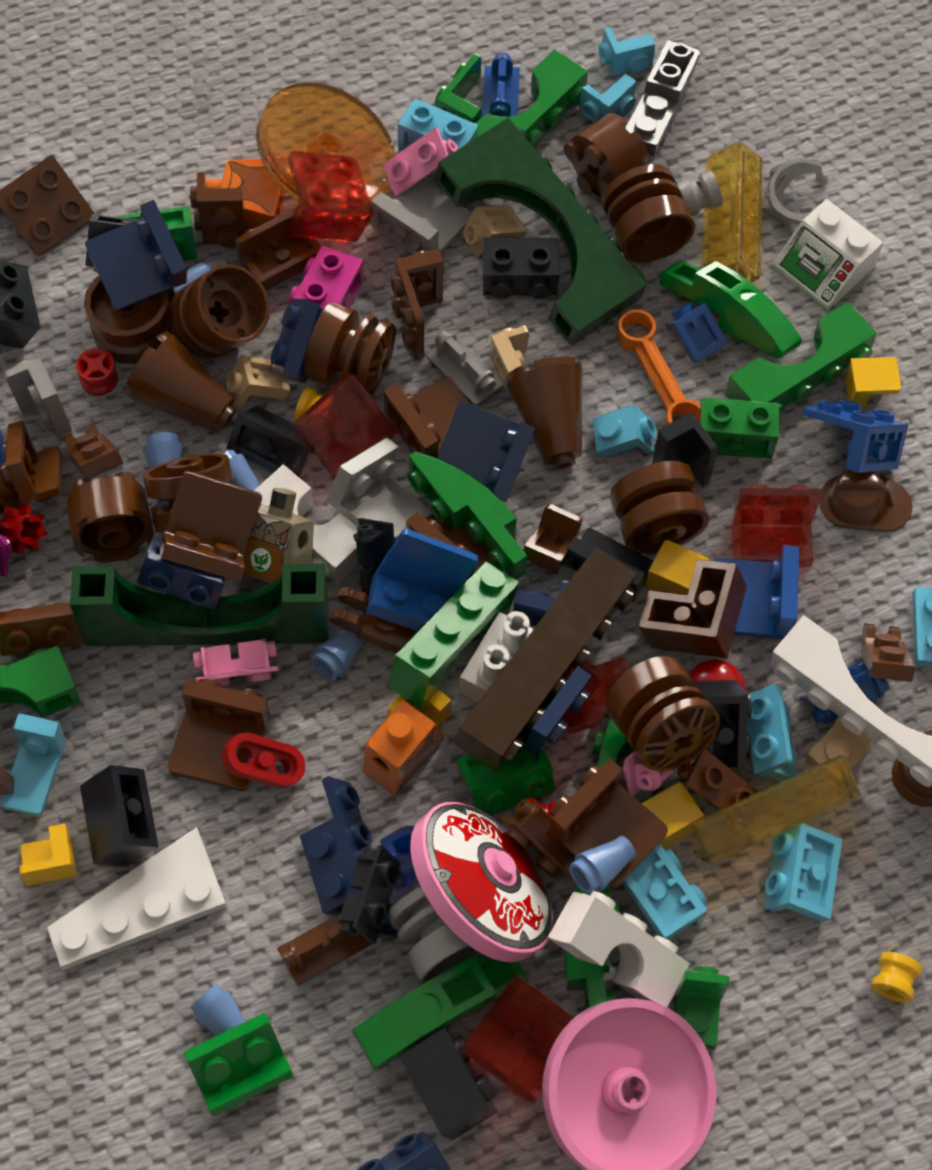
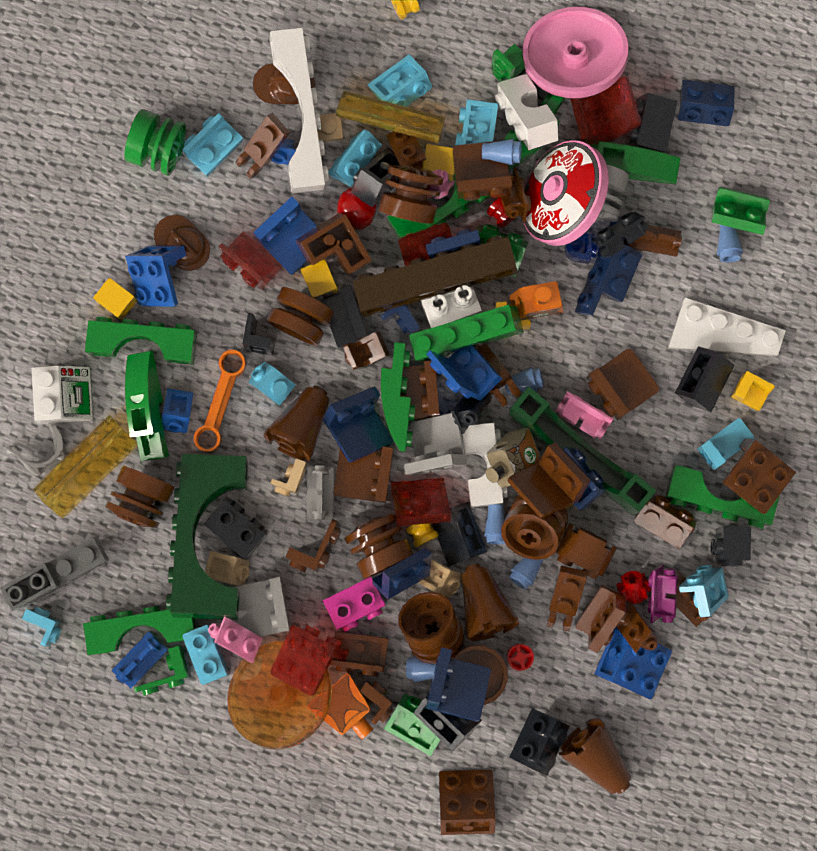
camera: 135 degrees left, 20 degrees up
(35, 391) = (564, 653): light grey bracket -> none
(261, 759) = (613, 352): red plate -> none
(604, 153) = (127, 553): reddish brown brick -> none
(616, 100) = (80, 593): medium azure bracket -> none
(701, 193) = (103, 491): light grey wheel -> none
(741, 426) = (212, 331): green bracket -> none

